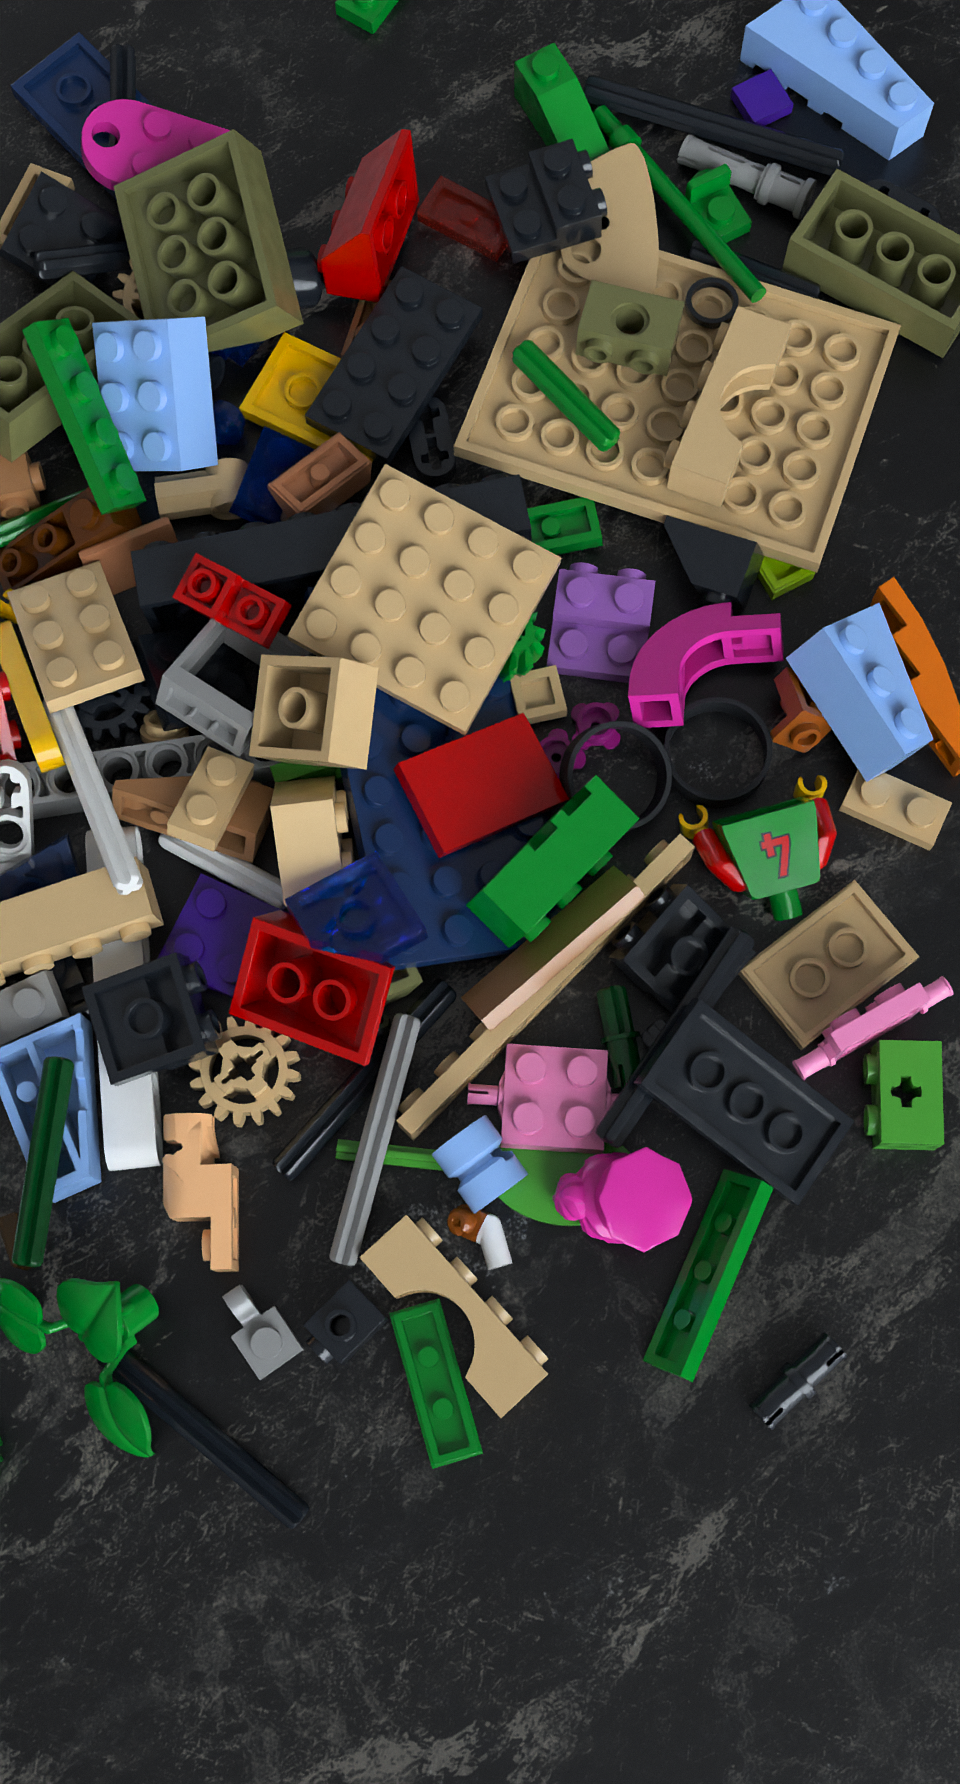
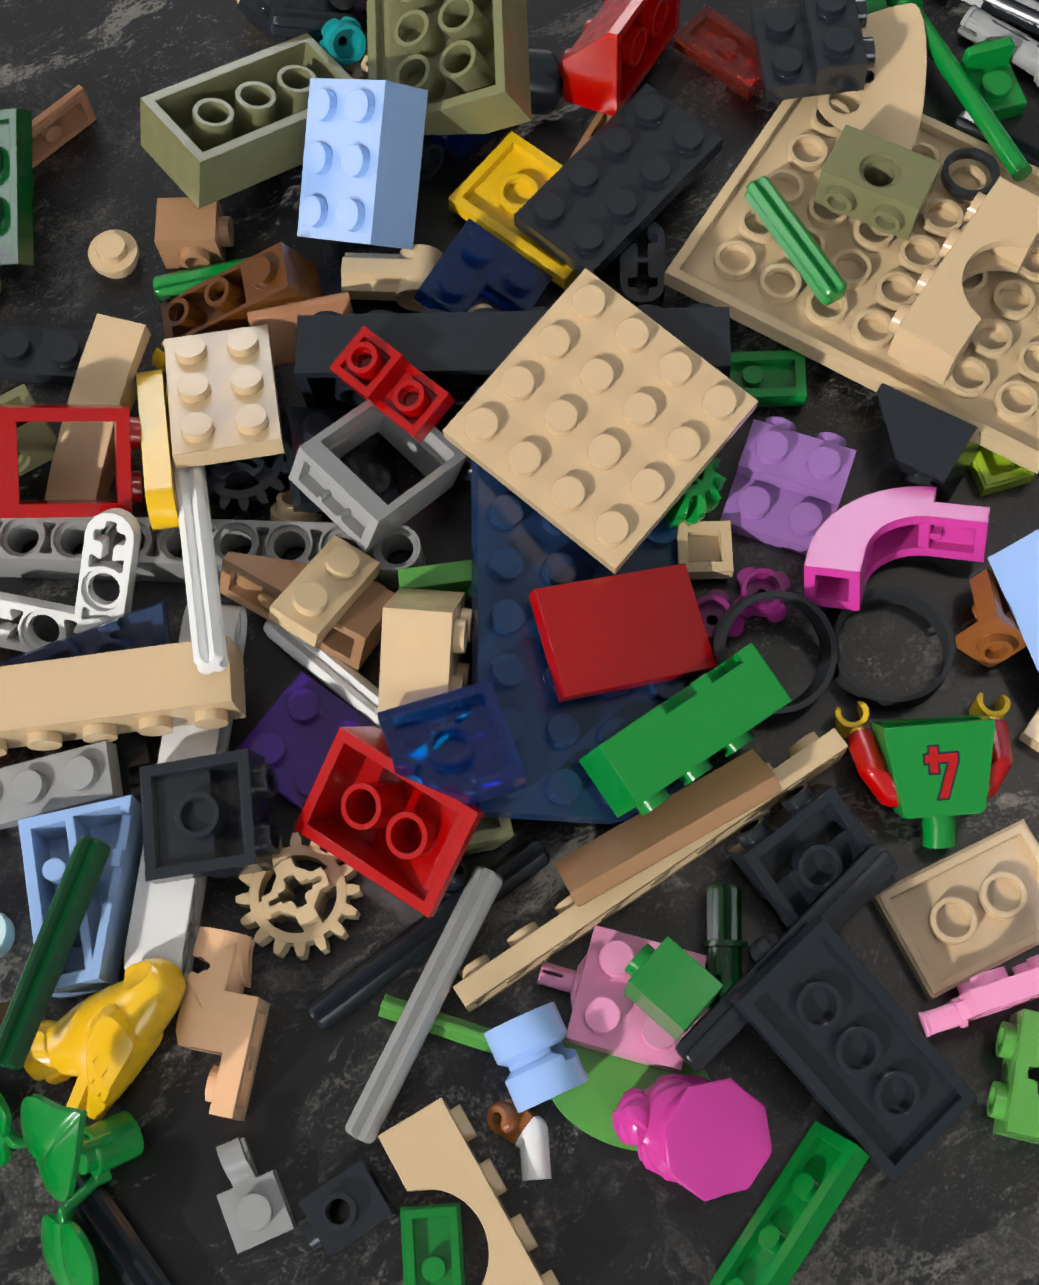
camera: 15 degrees right, 5 degrees down
(84, 415) = (281, 170): green plate -> none
(107, 1220) = (108, 1036): none -> yellow animal
(120, 273) = (355, 40): none -> teal plate
(228, 423) = (432, 212): clear blue plate -> none
(314, 711) = (454, 515): tan brick -> none
(322, 478) = (519, 279): nougat slope -> none
(582, 1082) = (670, 986): none -> green brick

